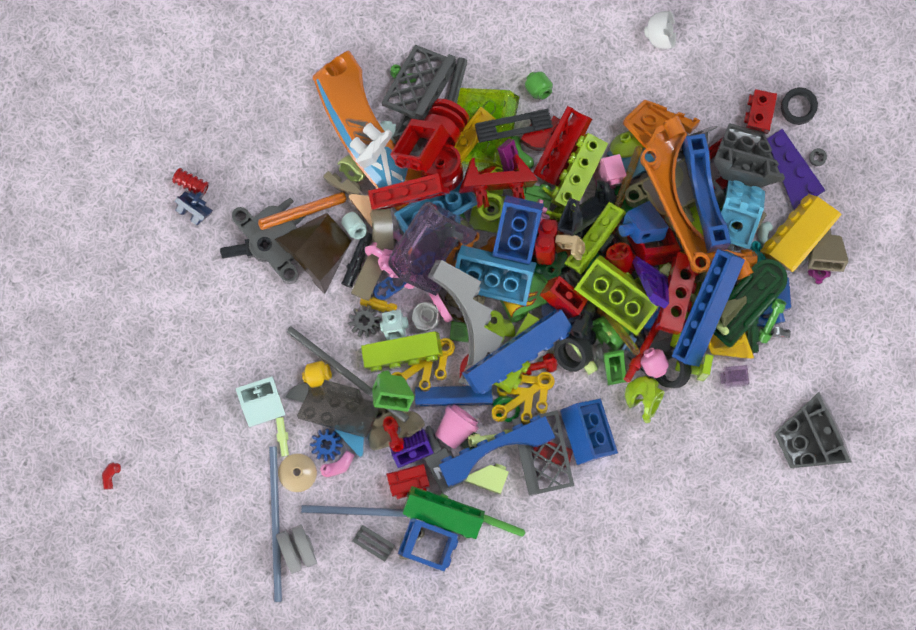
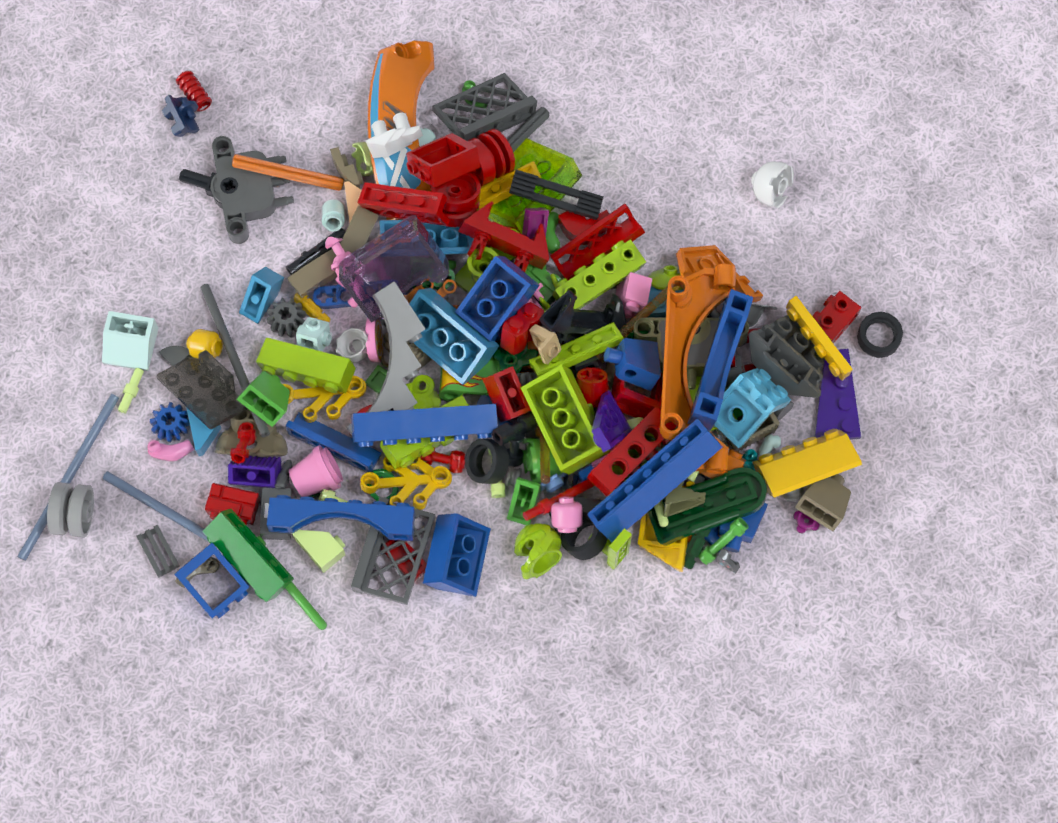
camera: 30 degrees right, 10 degrees down
(306, 477) = (125, 446): tan dish -> none
(317, 248) = (281, 218): dark brown wedge -> none
(335, 313) = (261, 293): none -> dark azure slope
(538, 85) = (609, 174): bright green head -> none
(734, 376) = (649, 580): clear purple brick -> none
(752, 131) = (823, 345): none -> yellow plate
(812, 437) = (701, 691): dark grey wedge -> none
(815, 162) = (866, 402): dark grey bush -> none

